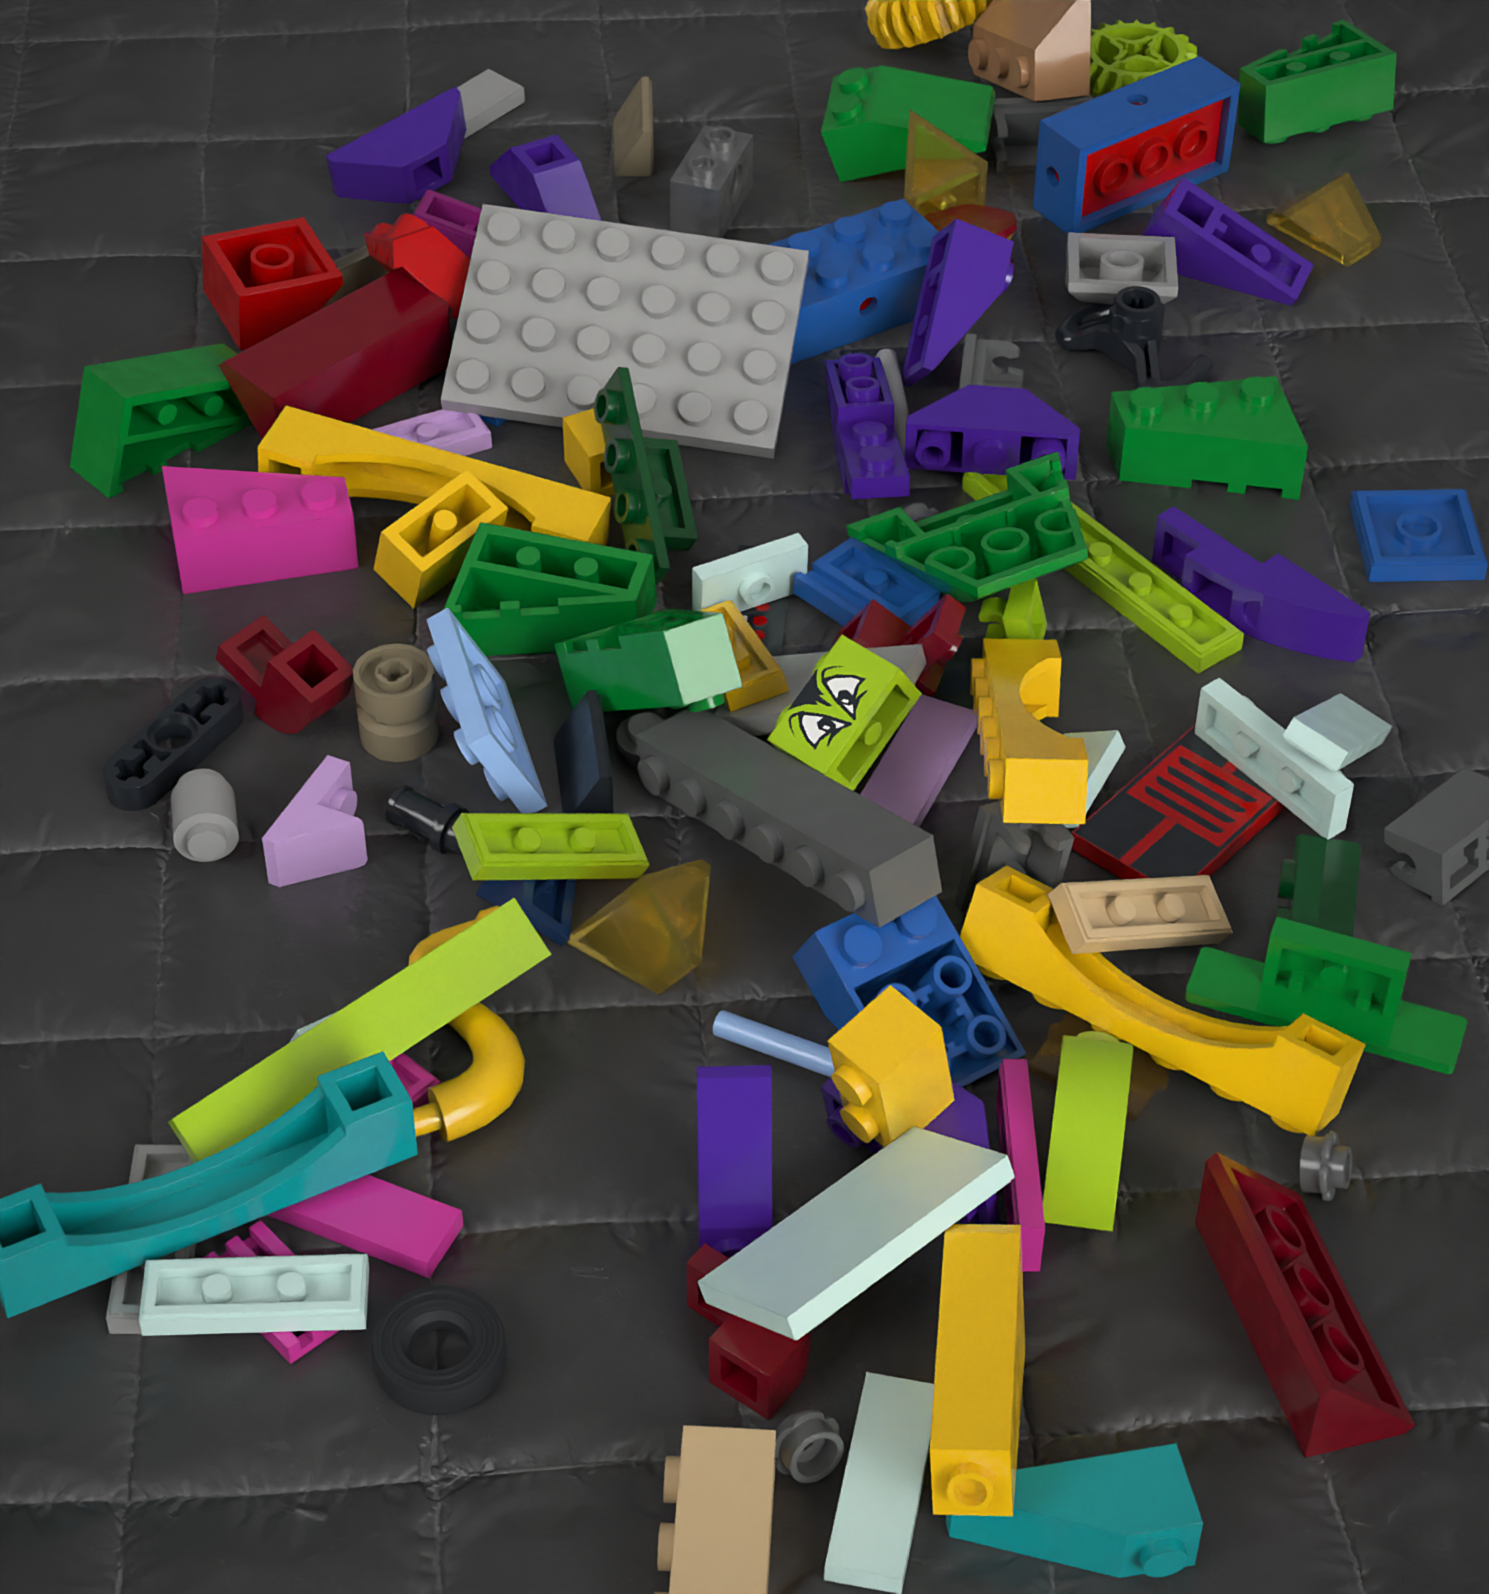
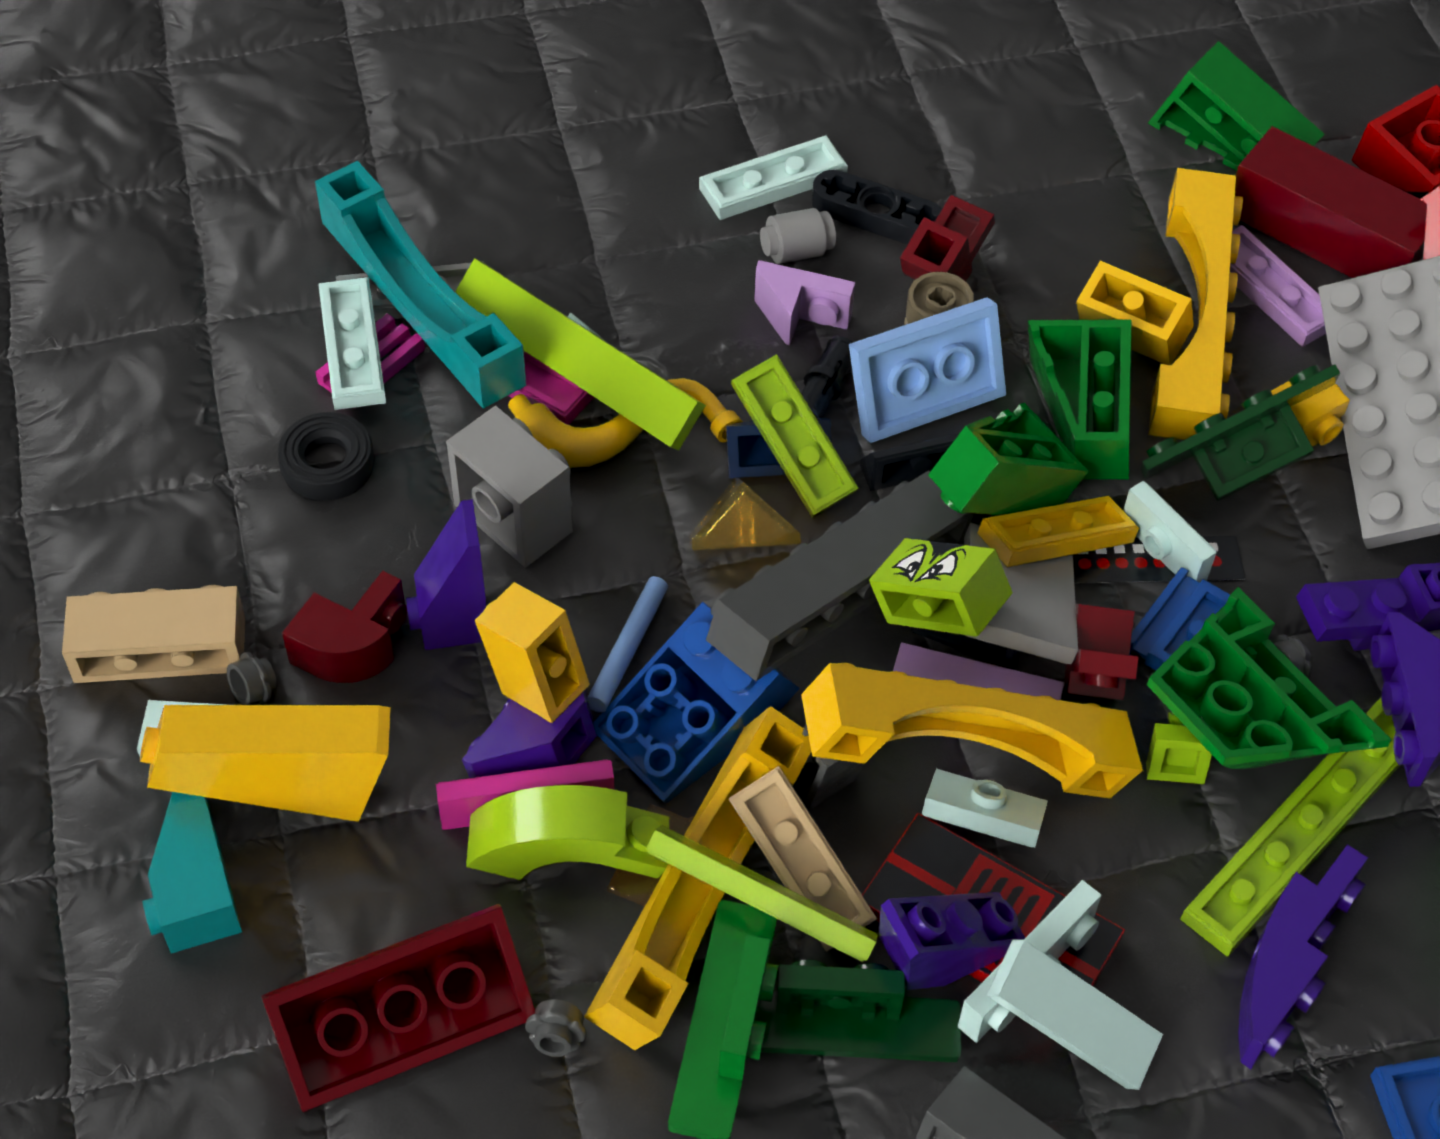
camera: 80 degrees right, 10 degrees up
(78, 837) = (769, 177): none -> light aqua tile
(257, 526) = (1117, 198): dark pink wedge -> none
(380, 1222) = (434, 411): dark pink tile -> none
(576, 1118) = (514, 484): none -> light grey brick
(855, 1231) = (391, 657): light aqua tile -> none
(1193, 942) = (762, 893): none -> lime tile
(1256, 806) = (946, 935): none -> dark purple slope

